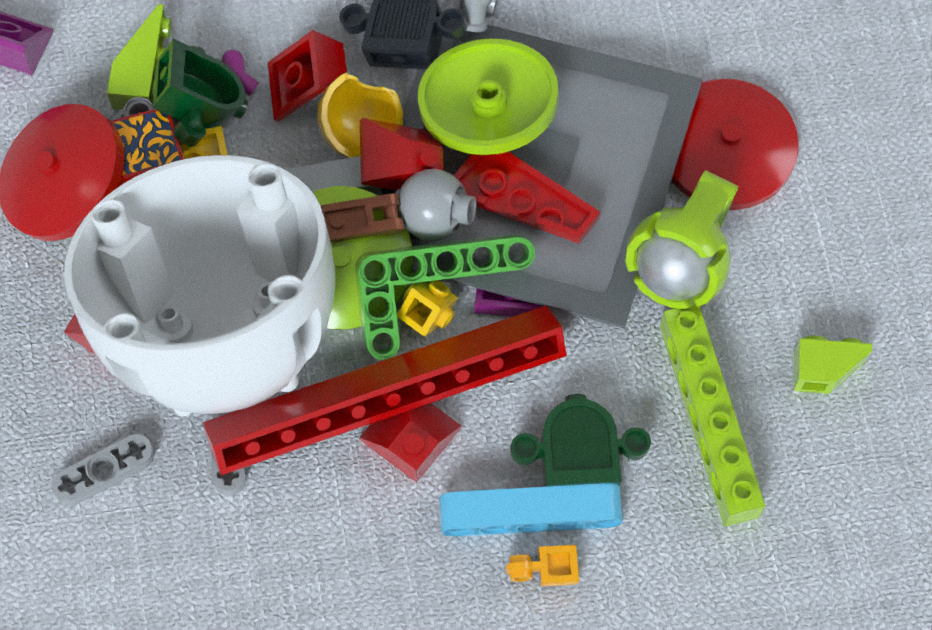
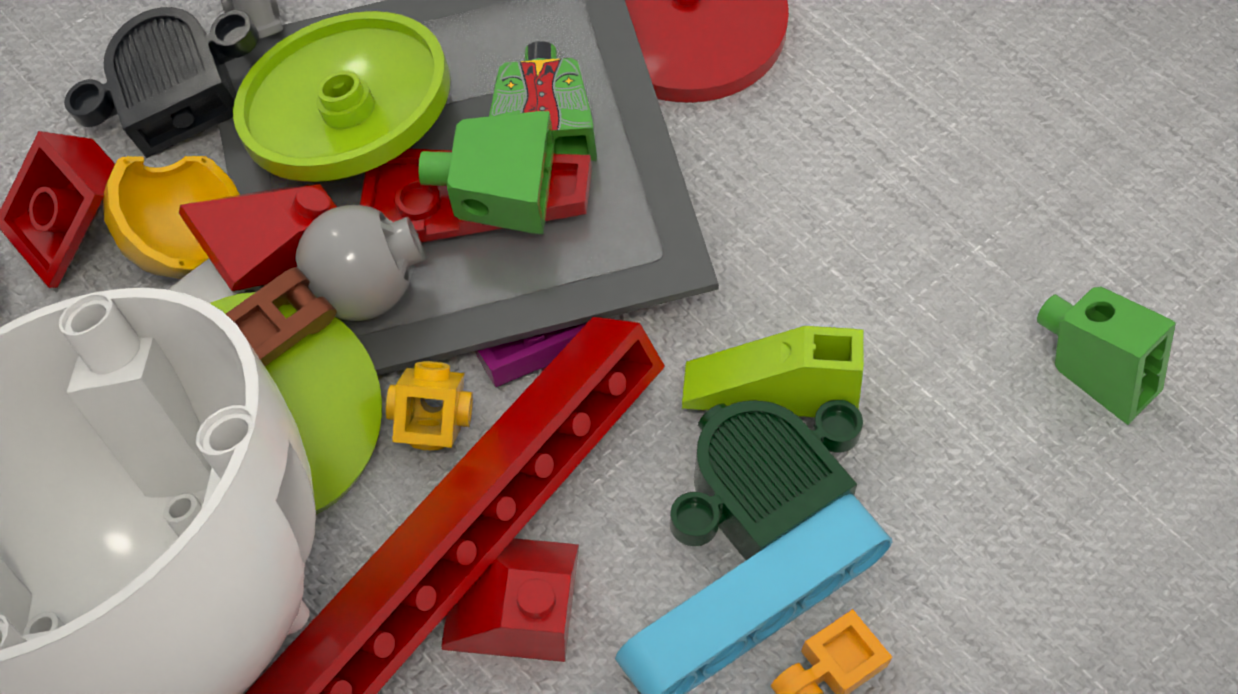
camera: 30 degrees left, 10 degrees down
(426, 271) = (399, 348): bright green beam -> none
(540, 194) = (497, 170): none -> bright green torso
(592, 166) = (550, 86): none -> torso
(626, 396) = (788, 369): none -> lime slope
(682, 249) = (738, 136): lime piece -> none
(711, 416) = (910, 338): lime brick -> none
(817, 488) = (1111, 348): none -> bright green torso
(825, 364) = (995, 200): lime slope -> none

